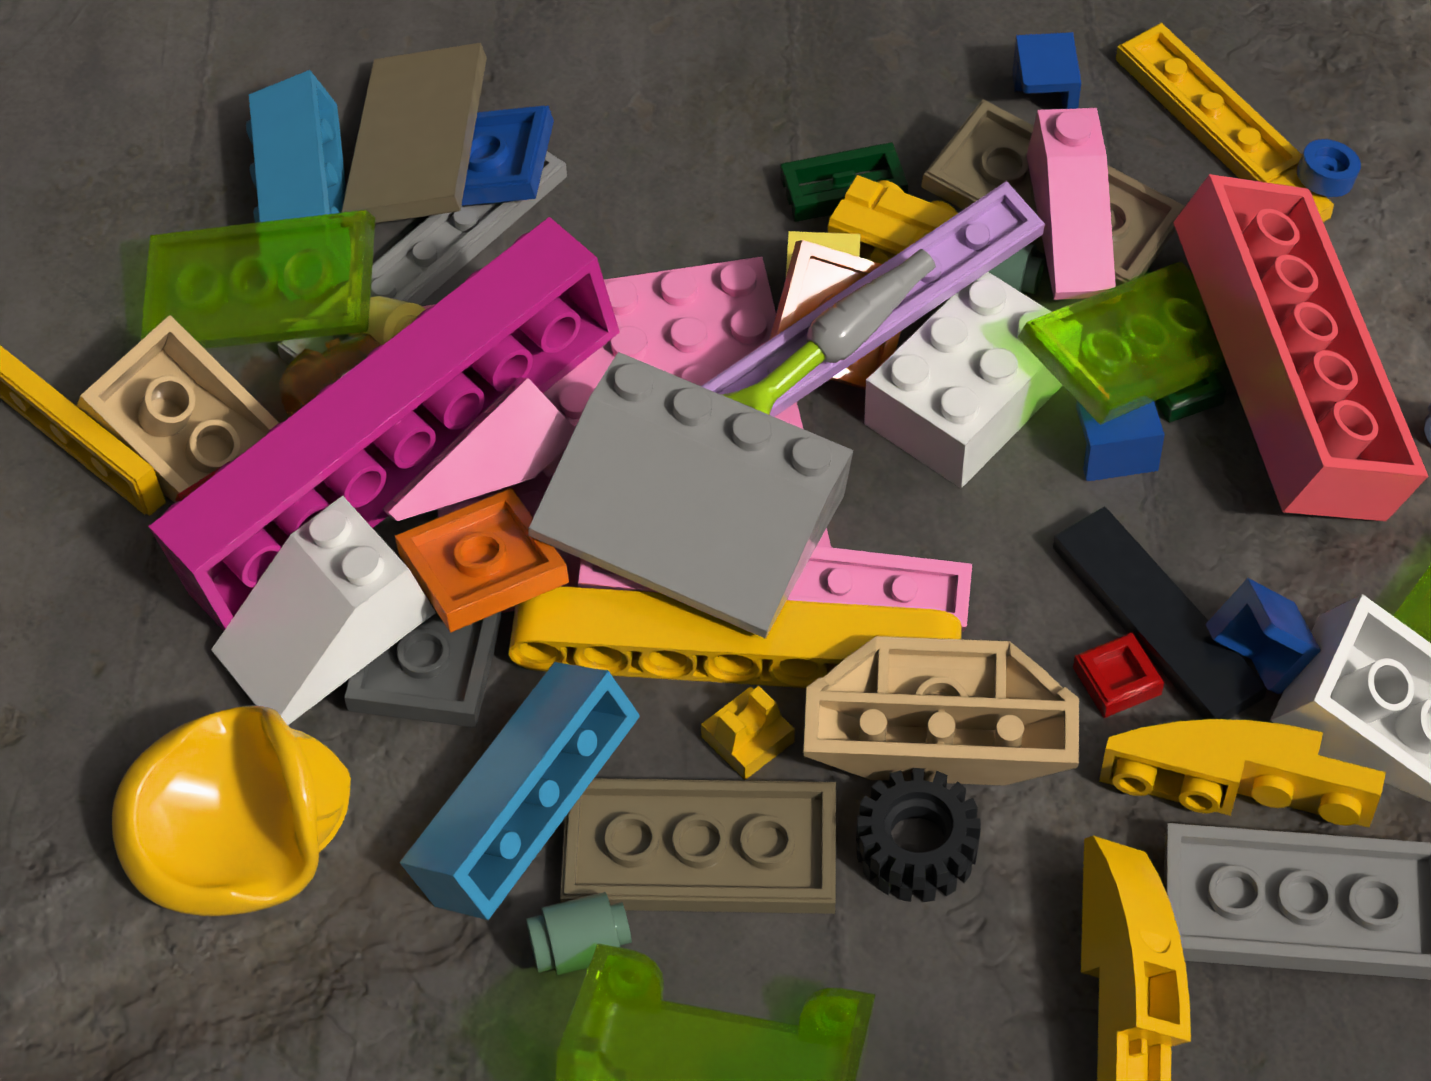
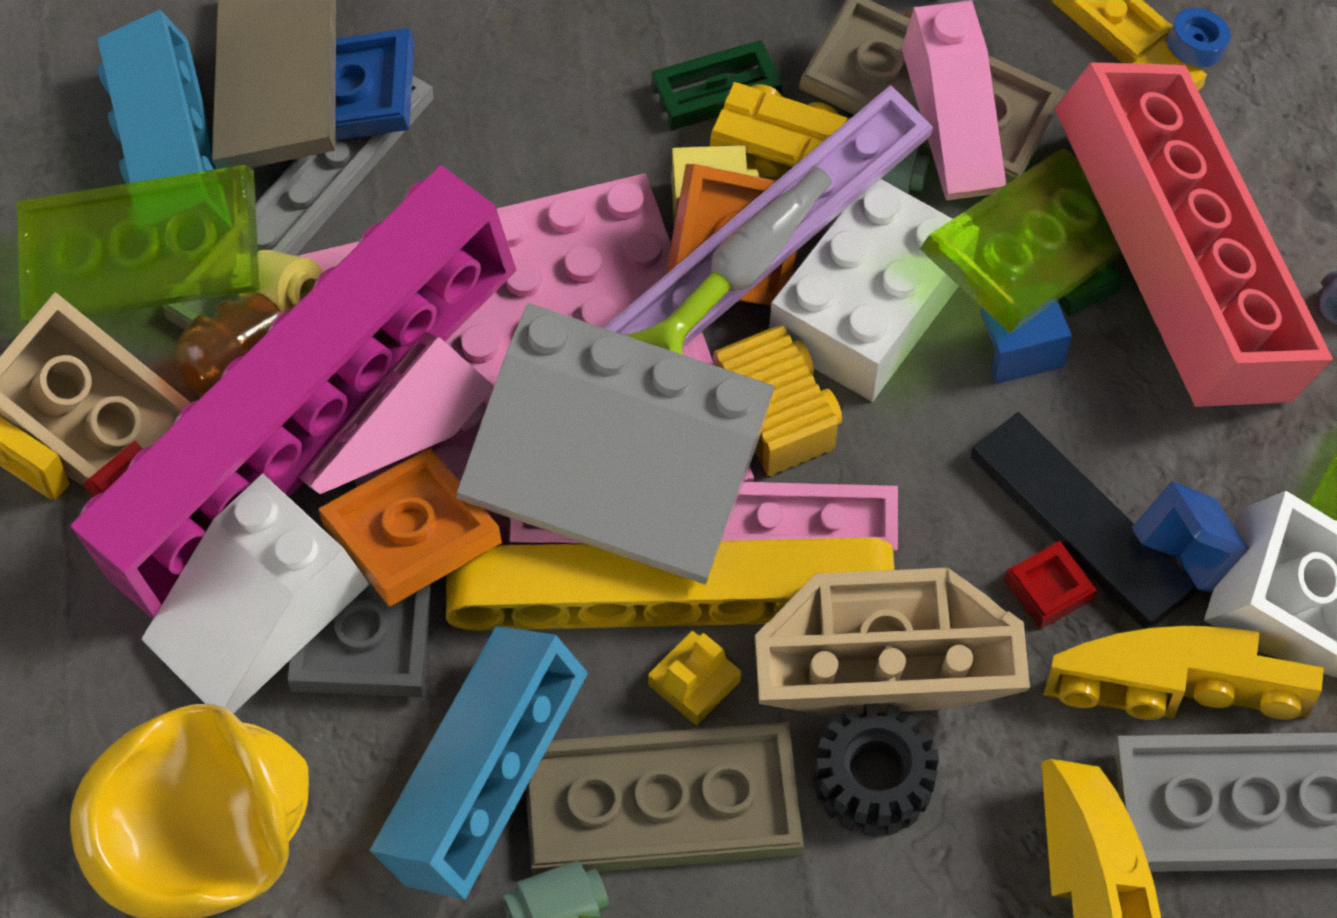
camera: 10 degrees left, 5 degrees up
(879, 492) = (800, 416): none -> yellow brick

